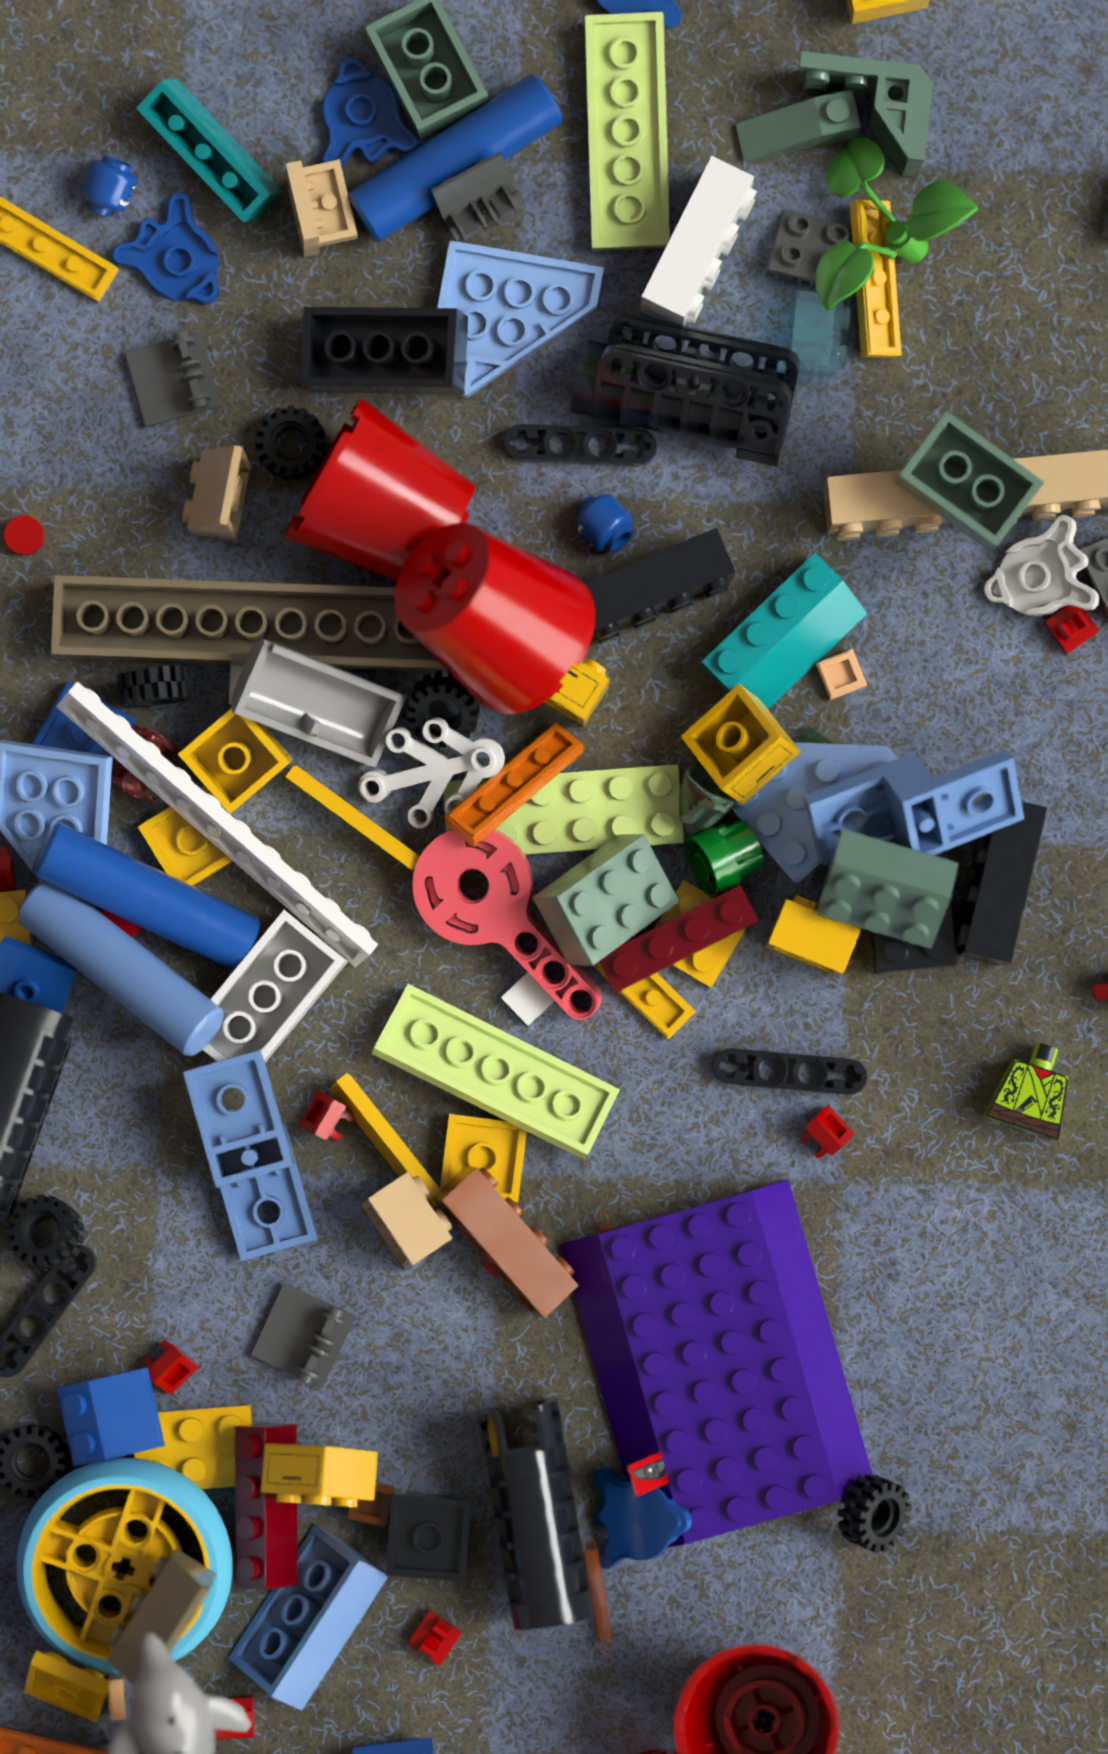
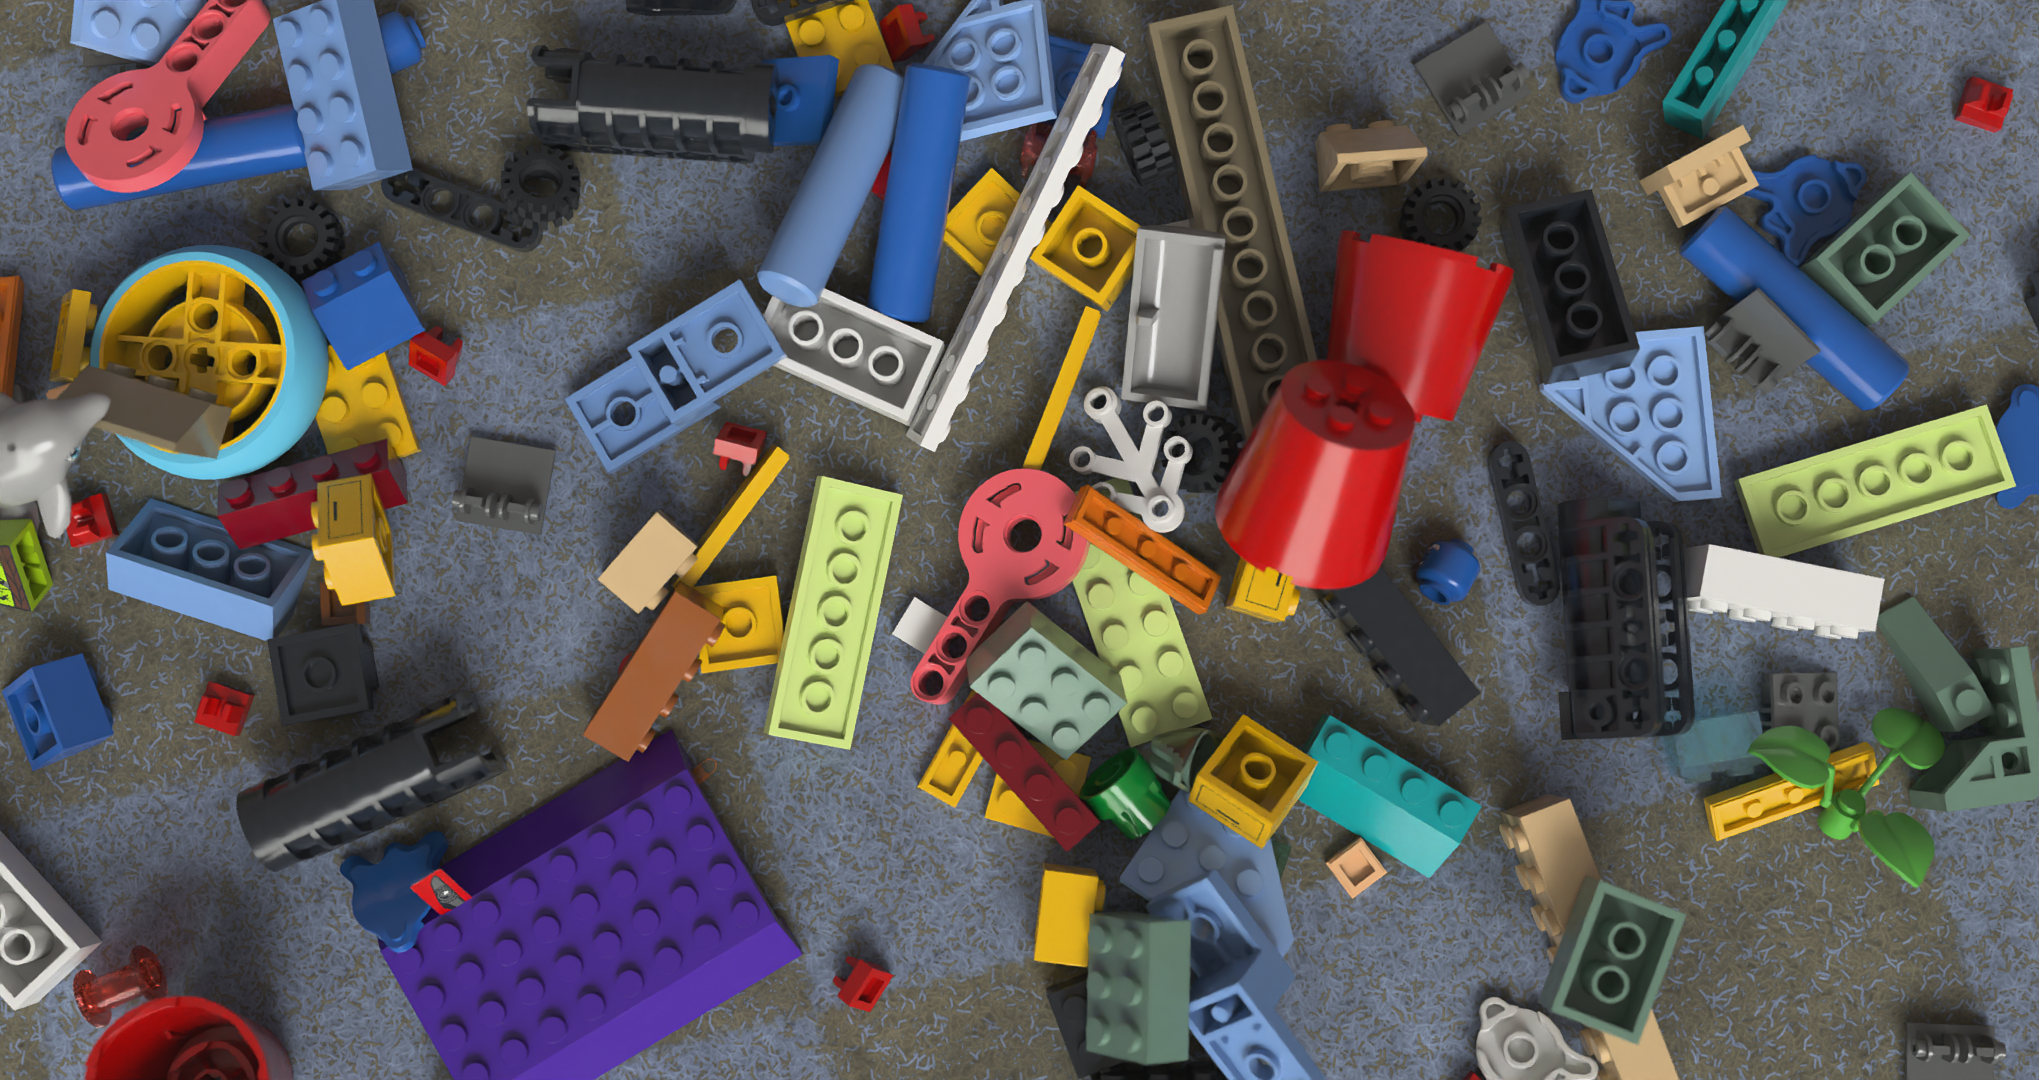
camera: 70 degrees right, 0 degrees up
(593, 1594) = (349, 853): orange piece -> none
(790, 1066) = (911, 926): black beam -> none

